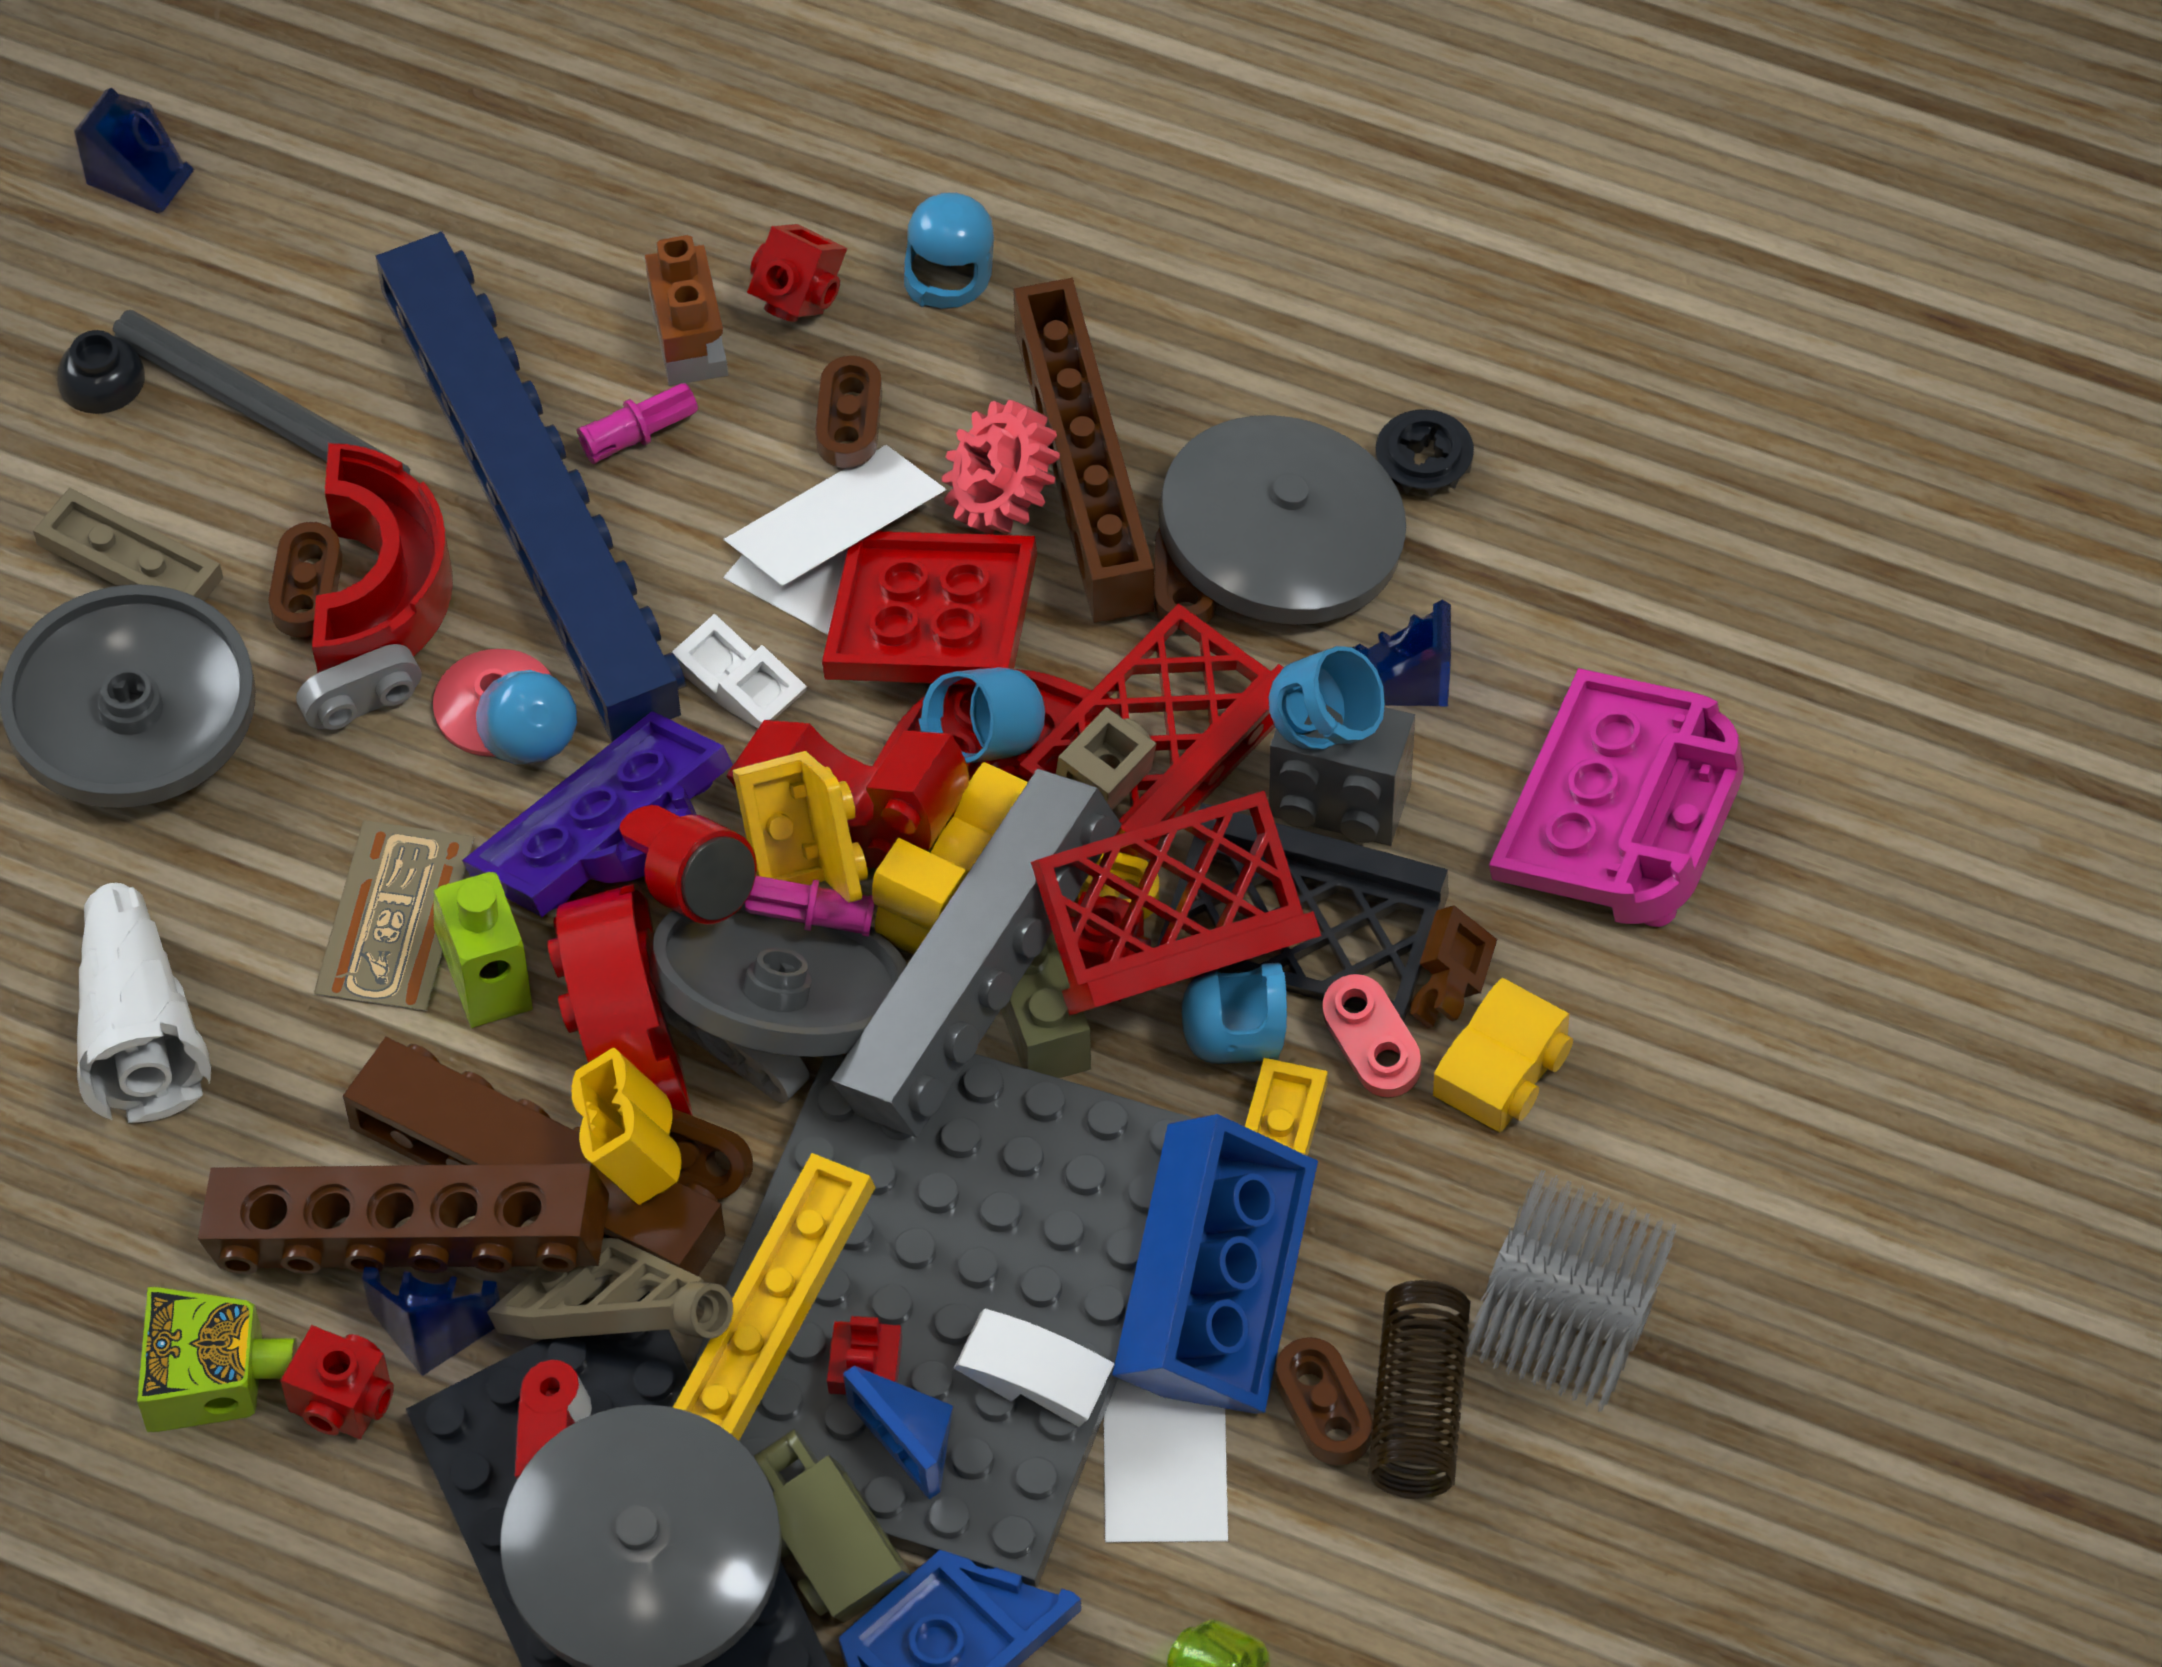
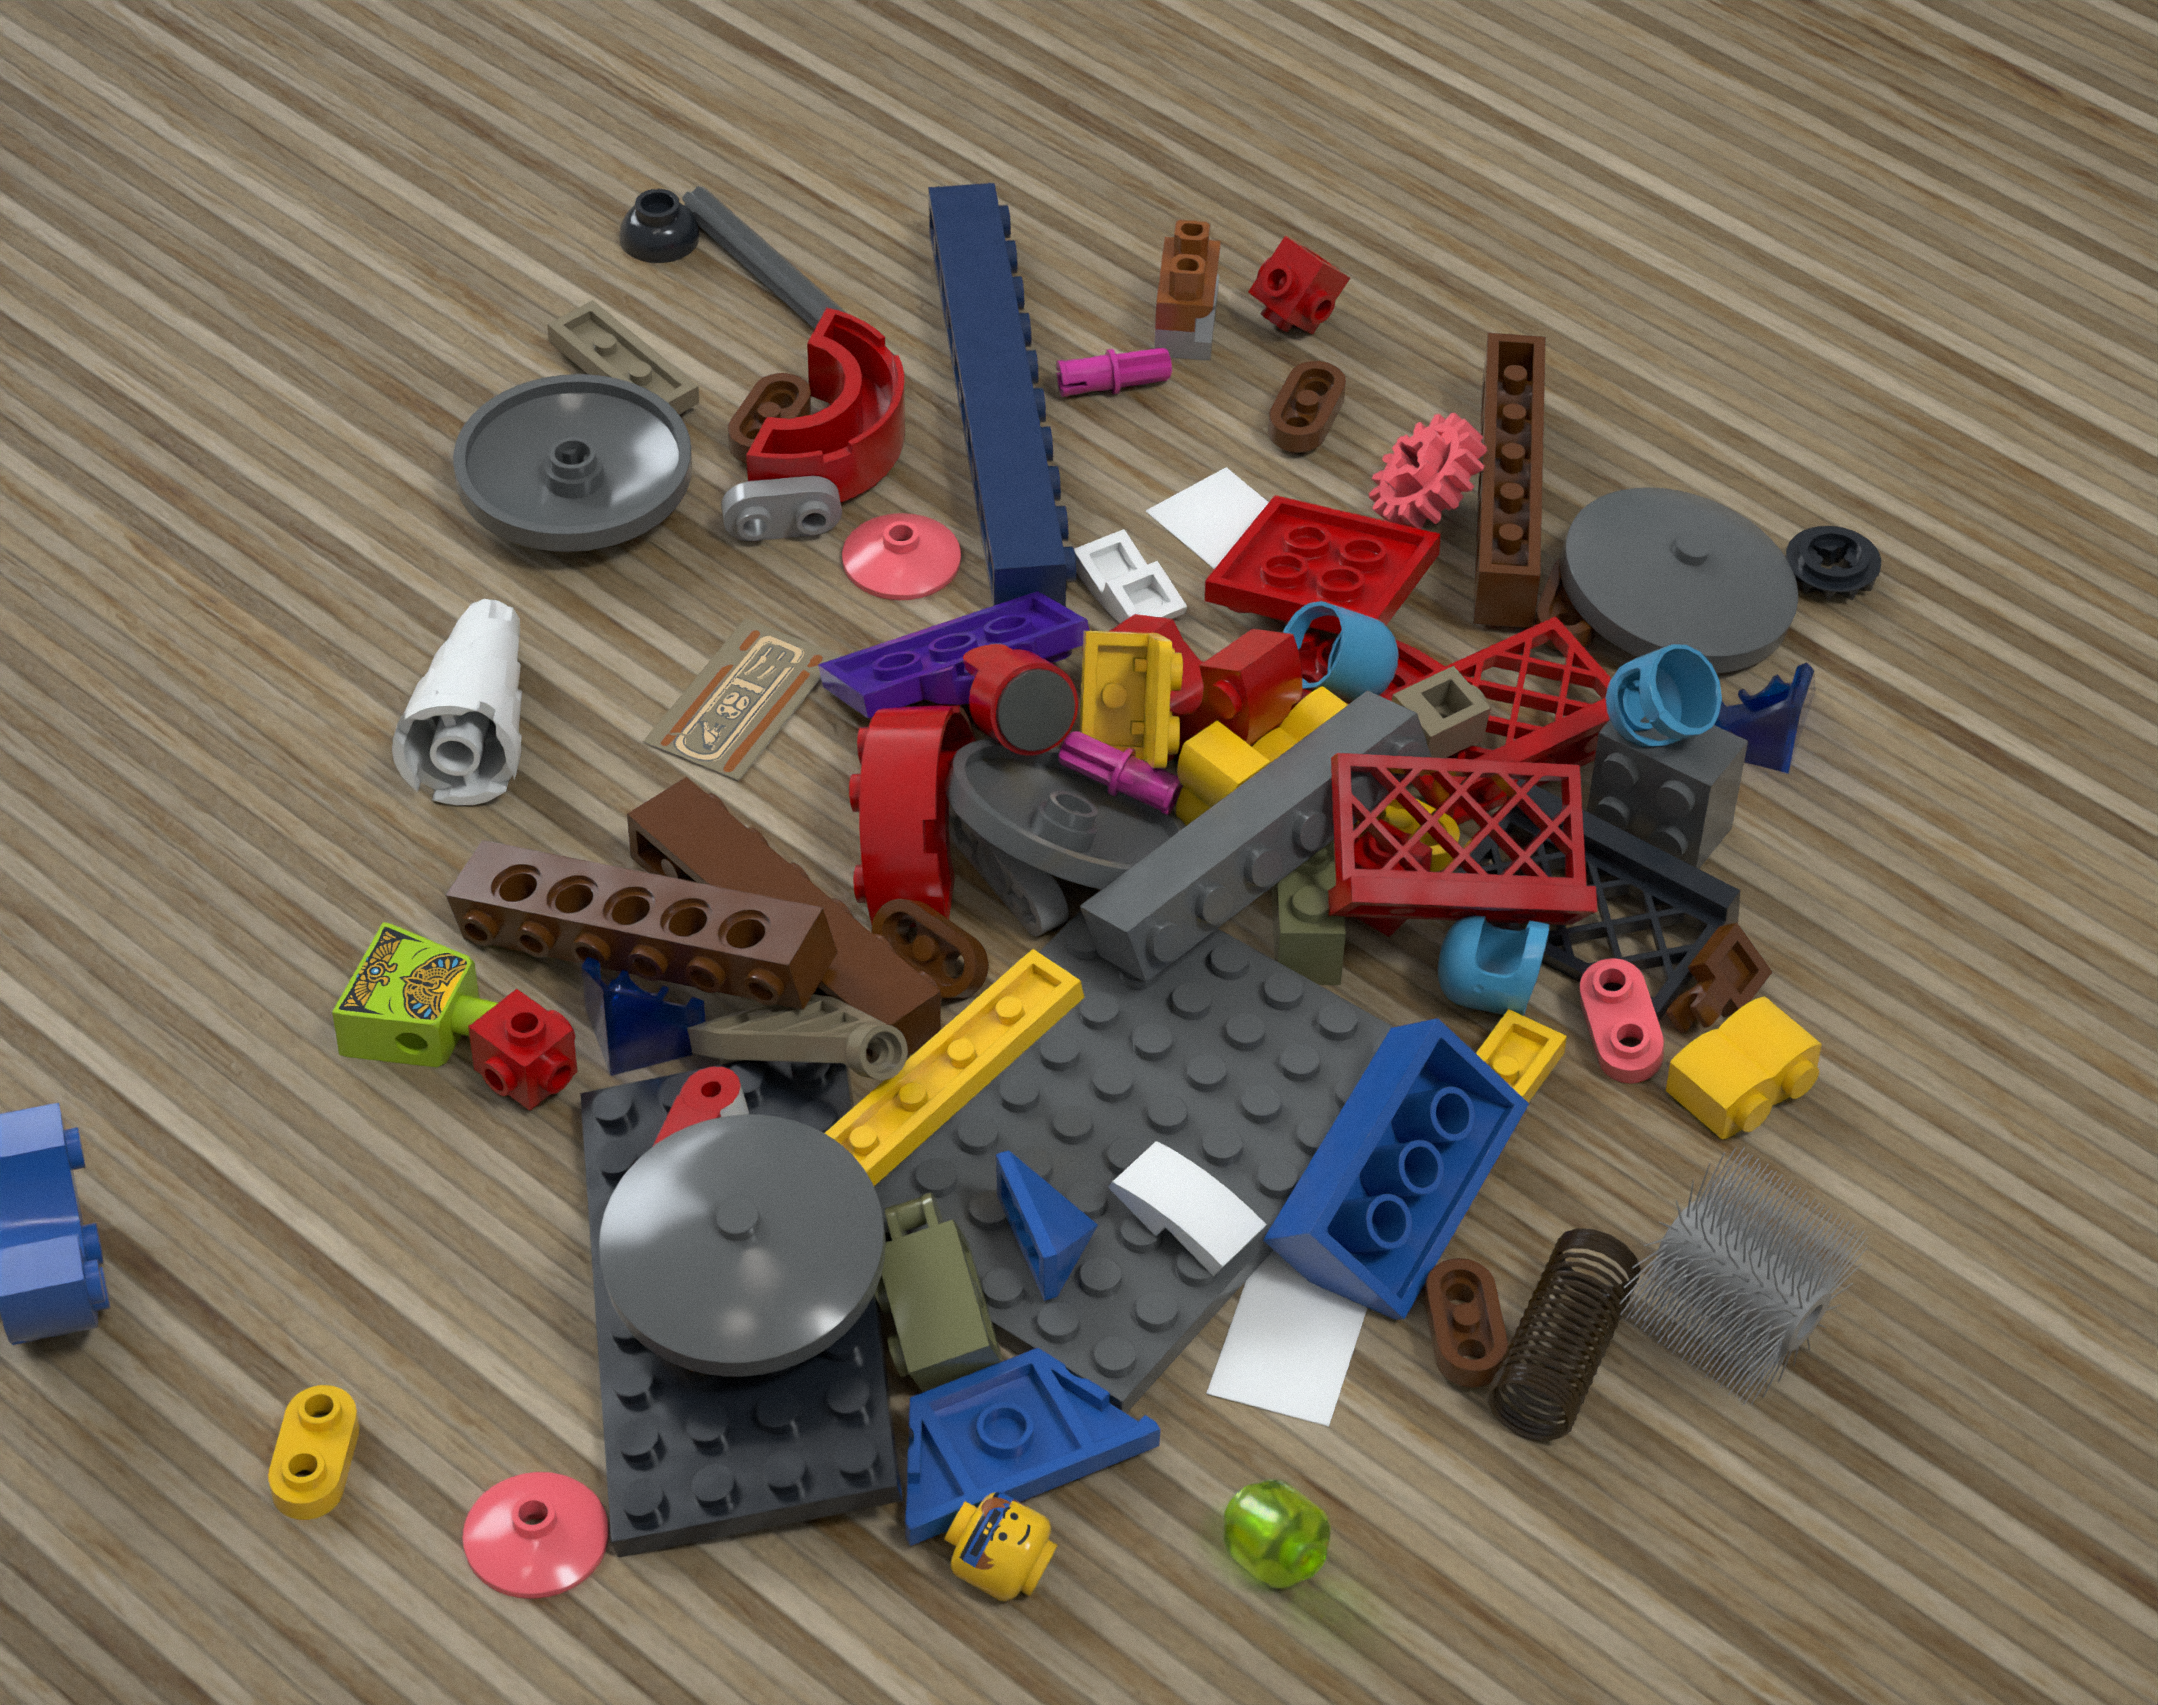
camera: 15 degrees right, 10 degrees down
(130, 152) = (750, 73): clear blue slope -> none
(476, 929) = (805, 705): lime torso -> none
(526, 717) = (919, 563): dark azure helmet -> none
(626, 1126) = (871, 893): yellow brick -> none
(834, 515) = (1263, 481): white sticker -> none
(865, 1345) = (1033, 1143): red tile -> none
(949, 232) = (1449, 283): dark azure helmet -> none
(1624, 798) = (1935, 884): dark pink plate -> none

